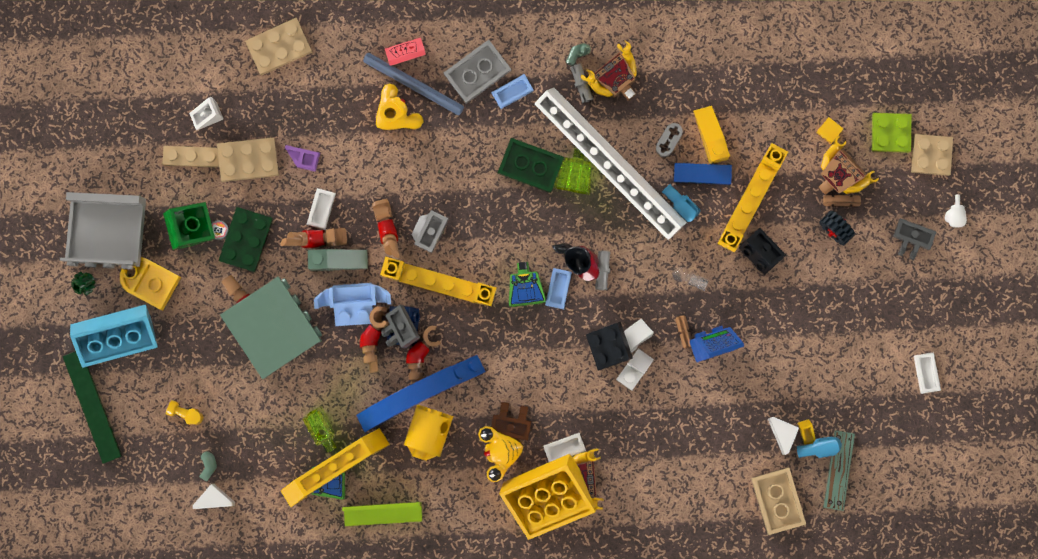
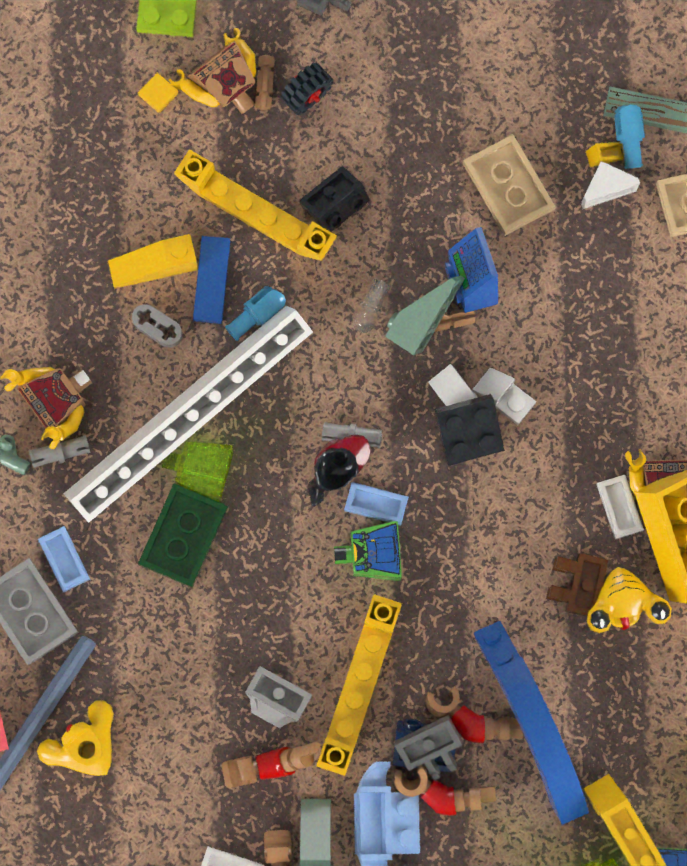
camera: 95 degrees left, 5 degrees down
(427, 432) = (594, 711): yellow cylinder -> none
(678, 308) = (418, 321): none -> sand green slope
(780, 367) = (508, 185): none -> tan plate

